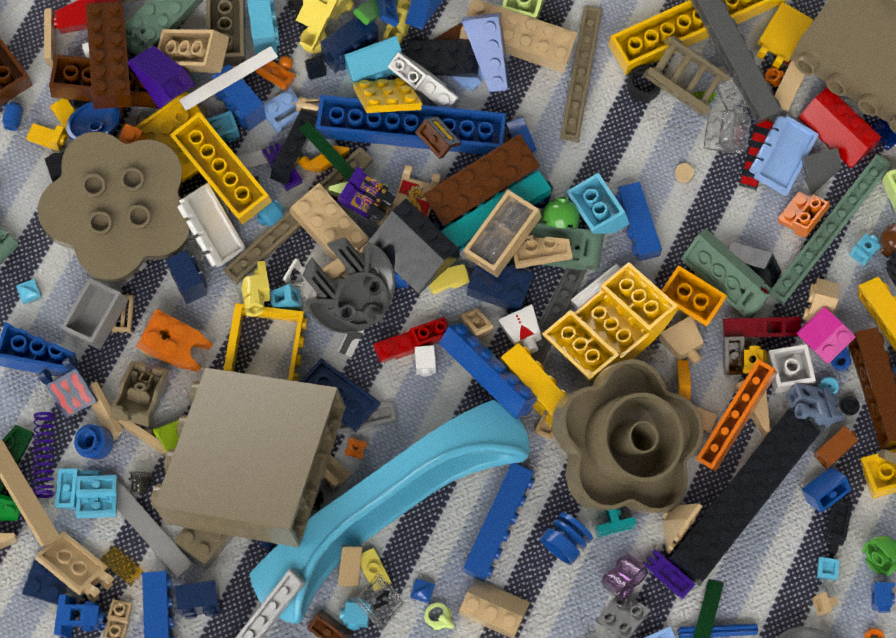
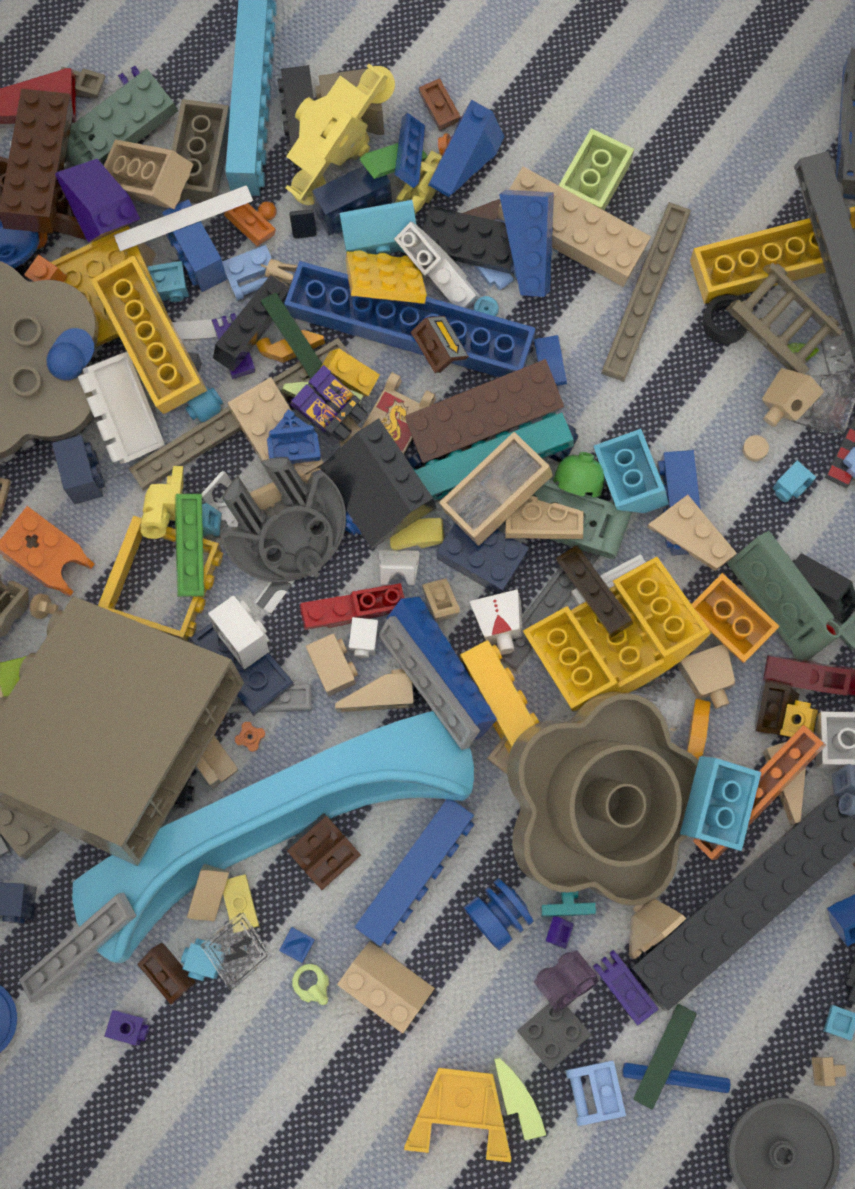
camera: 15 degrees right, 5 degrees up
(167, 191) = (70, 354): none -> blue cap
(178, 382) = (41, 606): none -> tan plate
(283, 316) = (189, 545): none -> bright green tile
(334, 370) = (239, 631): none -> white brick
(345, 224) = (293, 440): none -> blue slope
(376, 169) = (351, 372): none -> yellow brick
(405, 384) = (331, 664): none -> tan brick
(427, 520) = (322, 851): none -> reddish brown slope
(436, 303) = (402, 563): none -> white piece
(449, 398) = (384, 693): none -> tan slope
(465, 103) = (487, 305): none -> medium azure tile
(481, 381) = (429, 683): none -> light grey tile
(588, 295) = (594, 591): none -> dark brown plate
(612, 544) = (559, 932): none -> dark purple tile
(649, 238) = (692, 531): none -> tan wing
(701, 130) = (790, 396): none -> tan torso
(710, 426) = (720, 802): none -> medium azure slope
(717, 192) = (793, 482): none -> medium azure brick

